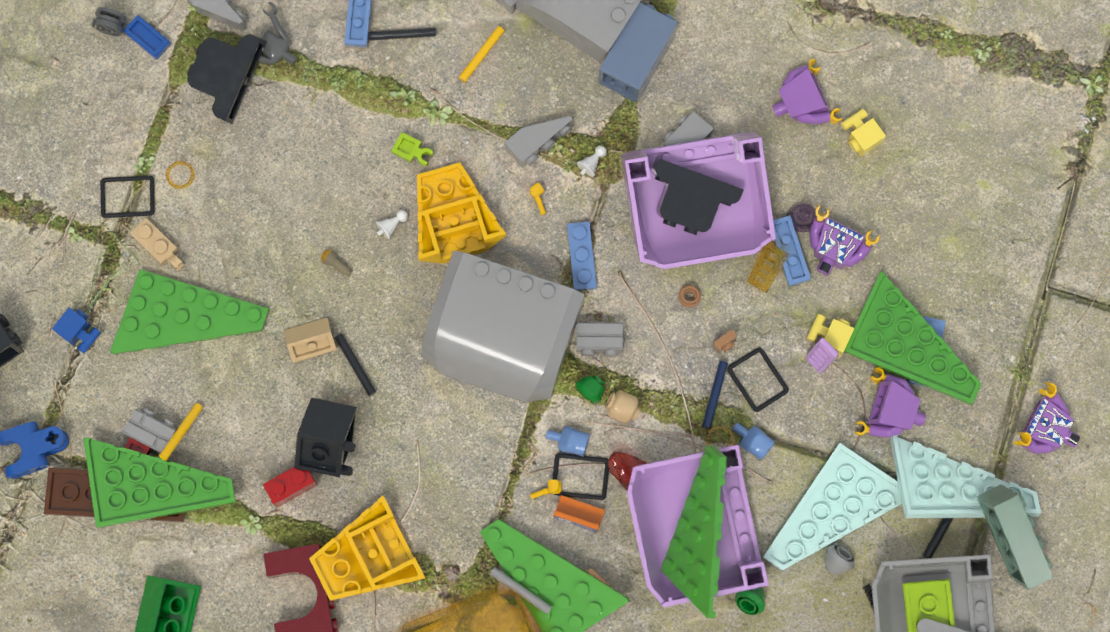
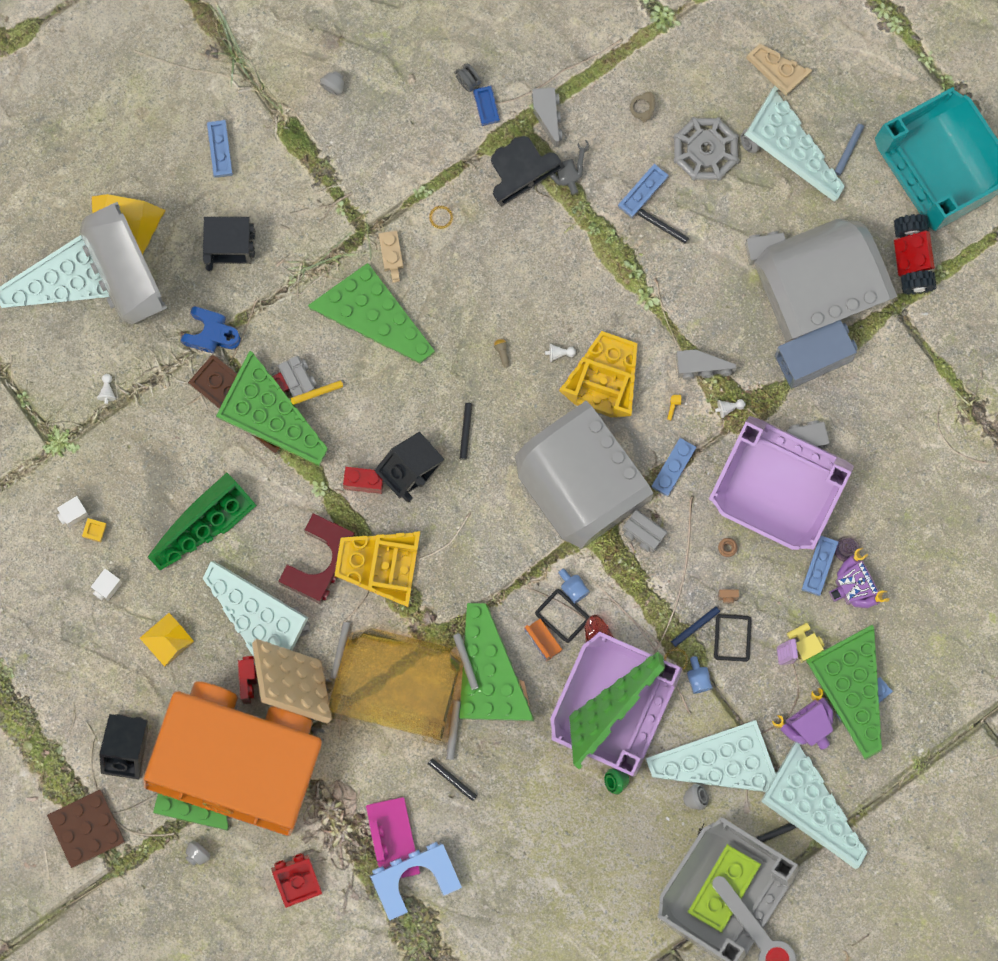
camera: 35 degrees right, 0 degrees up
(73, 327) = (295, 271): blue brick -> none
(128, 214) = (388, 220): black piece -> none
(309, 340) = (447, 392): tan panel -> none
(409, 148) = (609, 309): lime plate -> none
(480, 55) = (707, 278): yellow bar -> none
(554, 487) = (539, 609): yellow hand -> none
(590, 388) = (613, 561): green cone -> none
(622, 406) = (625, 589): tan head -> none
(691, 196) = (777, 479): black brick -> none
(760, 263) = (799, 556): clear yellow slope -> none
(804, 97) = (909, 467): medium lavender torso -> none
(865, 136) = (932, 524): light yellow brick -> none
(1015, 536) = (826, 867): brick -> none
(1048, 424) = (909, 812): torso -> none

